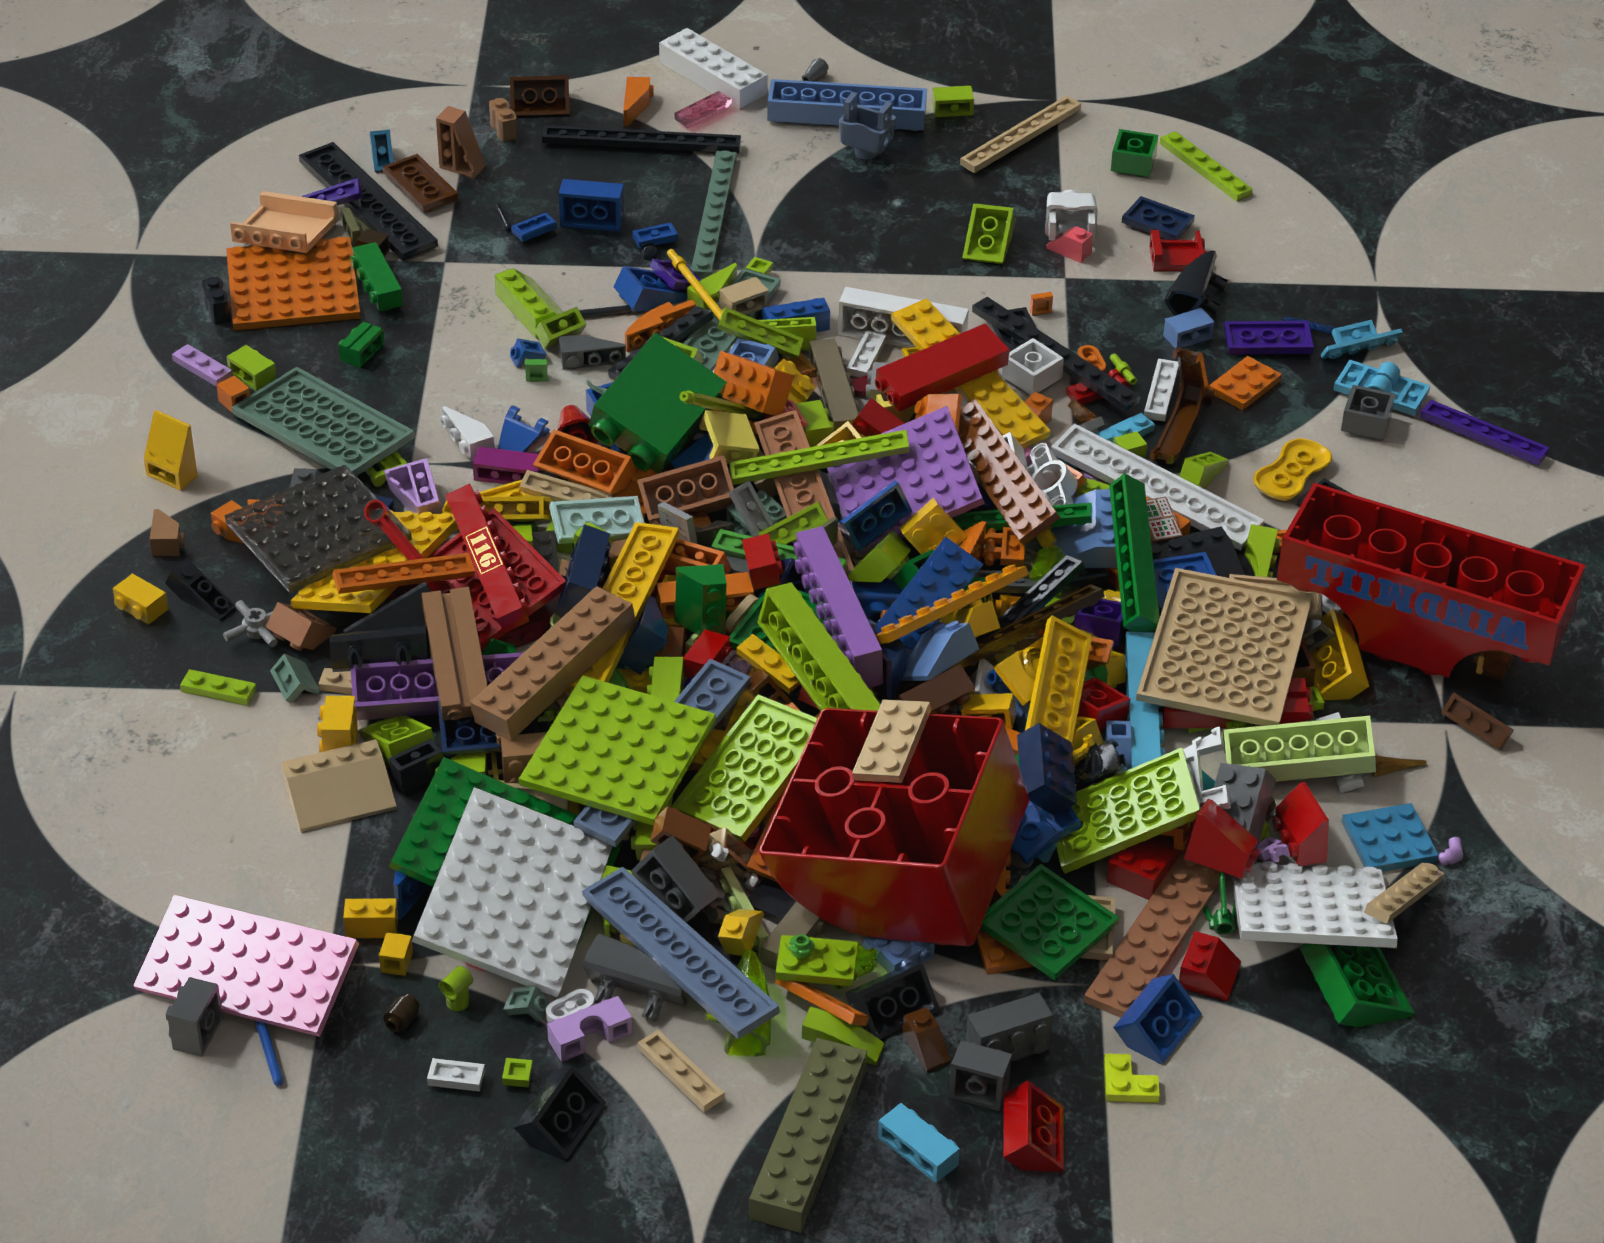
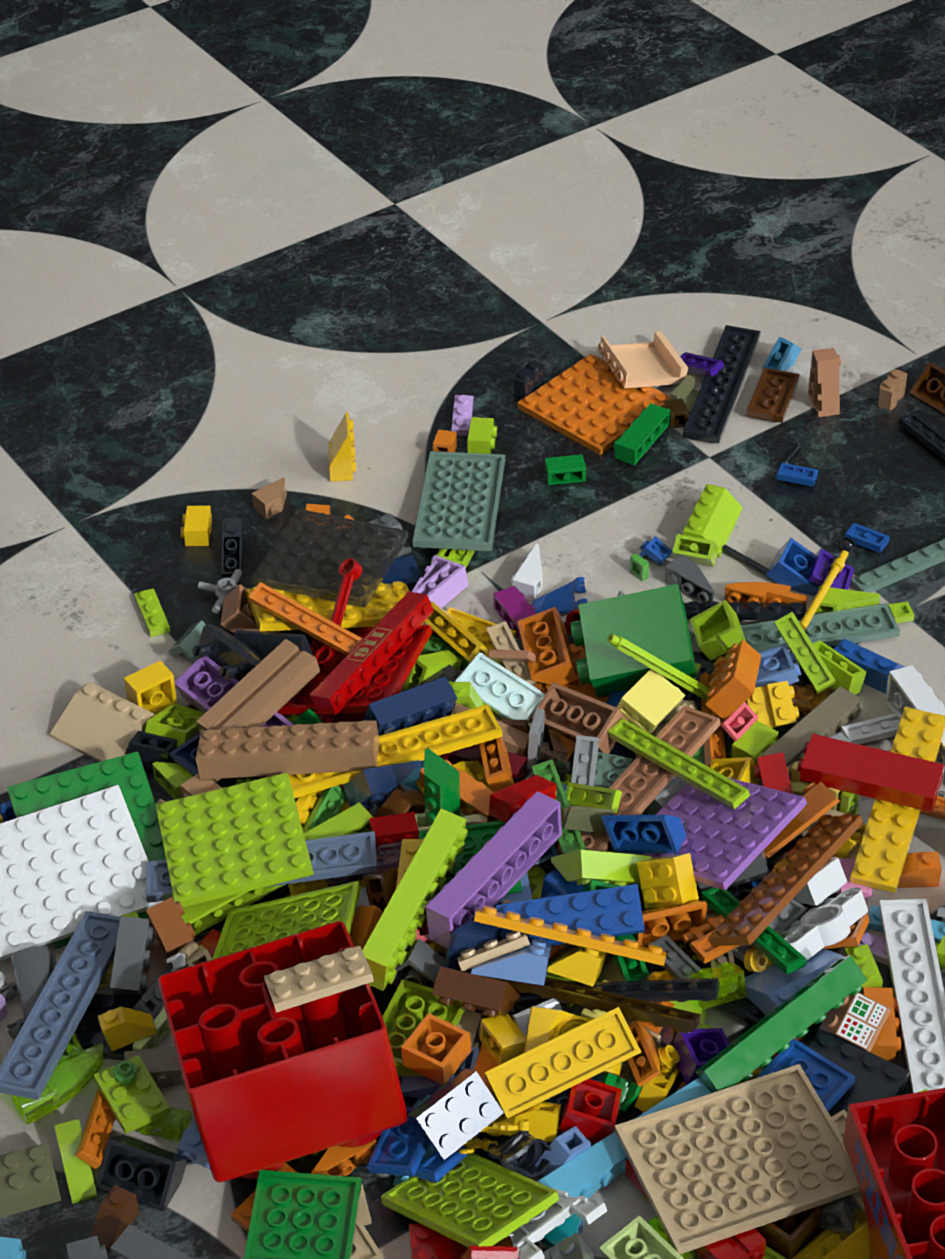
camera: 55 degrees right, 0 degrees up
(578, 485) = (512, 656): none -> nougat tile
(591, 205) = (849, 484): blue brick -> none
(745, 296) = (843, 621): tan brick -> none
(918, 655) = (492, 950): none -> tan plate

